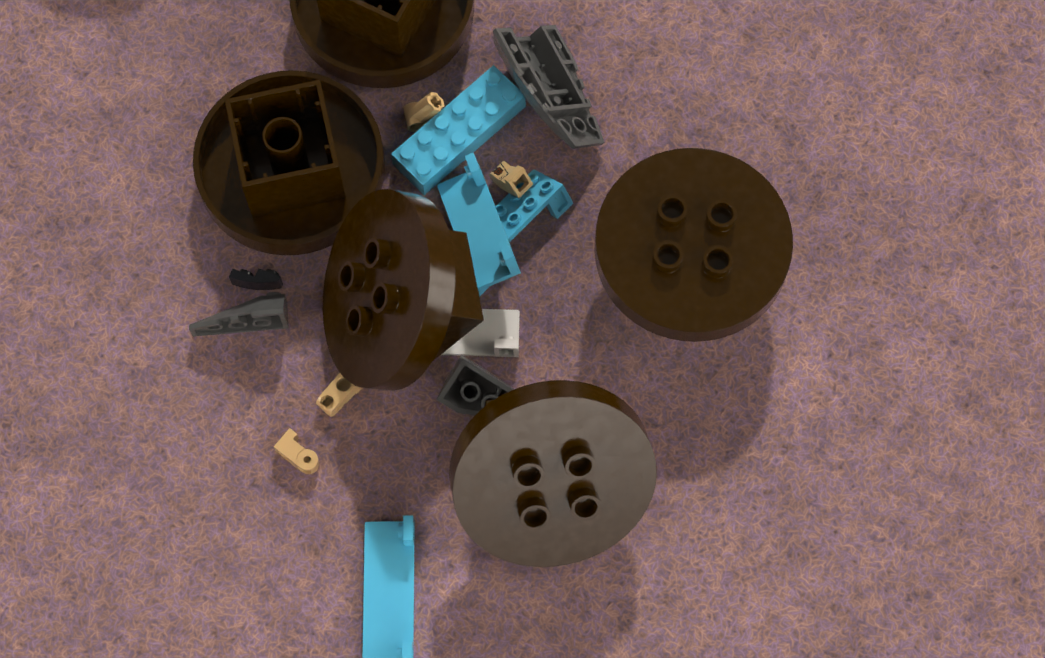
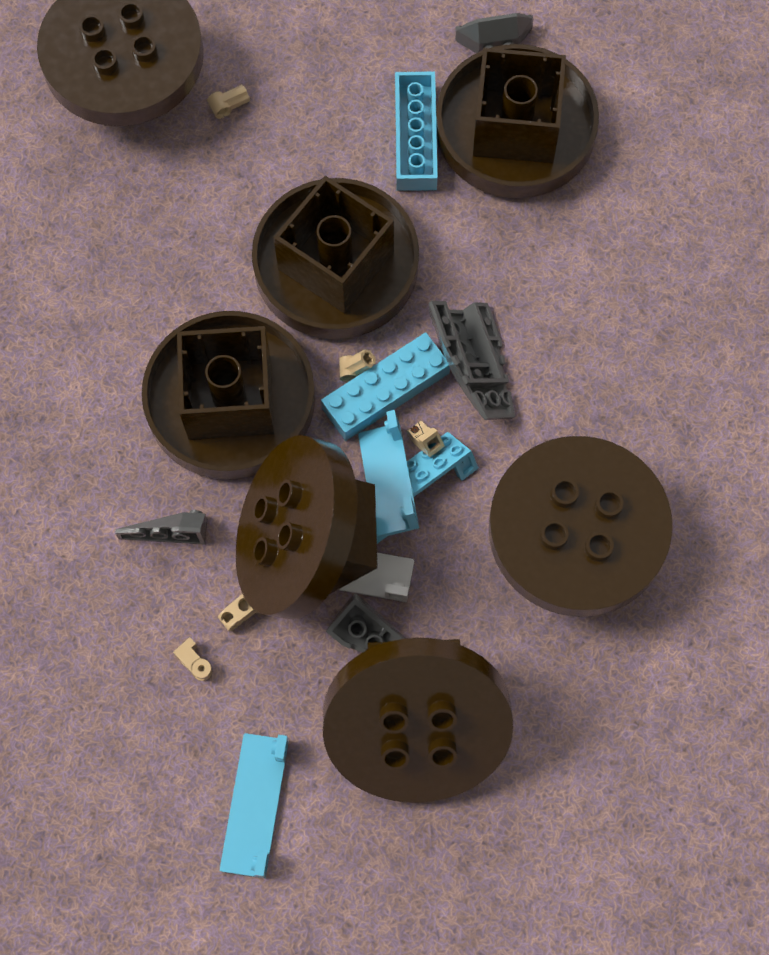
camera: 10 degrees right, 0 degrees up
(262, 281) = (188, 497): black slope -> none

